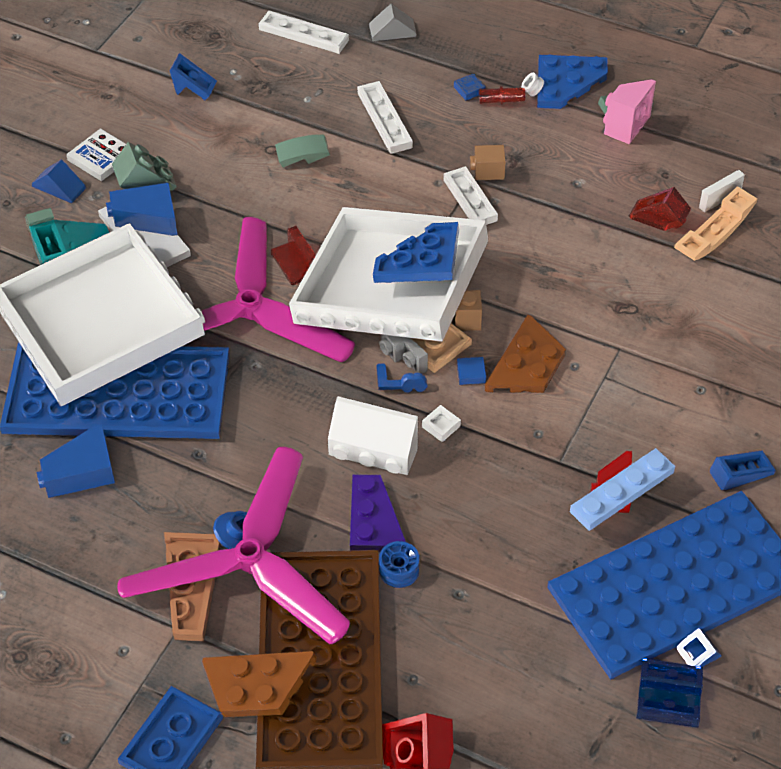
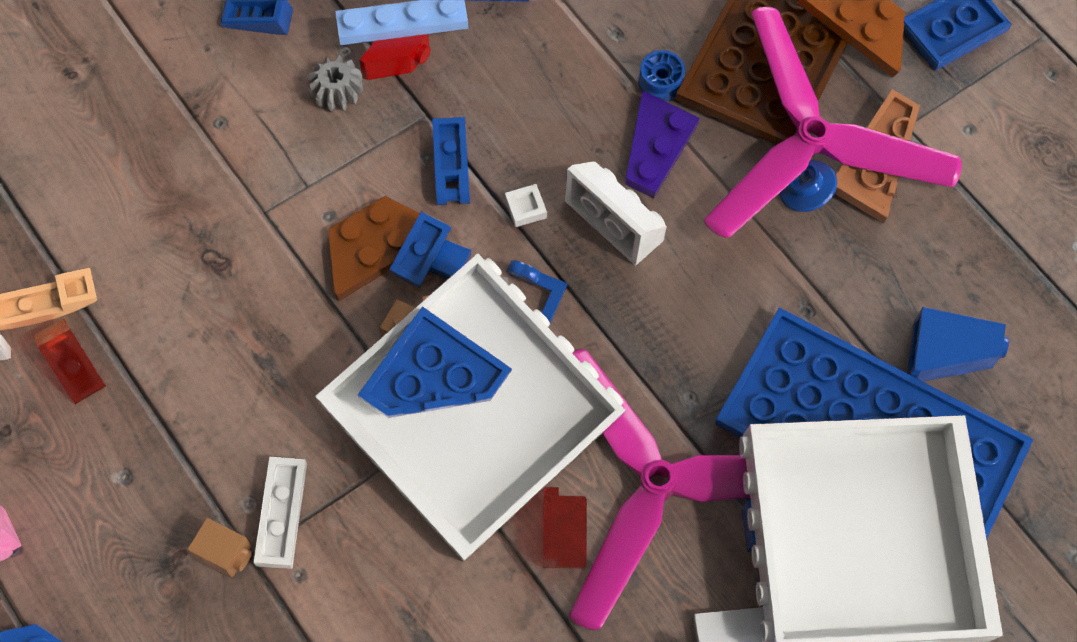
camera: 155 degrees left, 15 degrees up
(491, 354) = (420, 249): none -> blue plate
(516, 430) = (450, 160): none -> blue plate
(639, 438) = (335, 83): none -> light grey gear

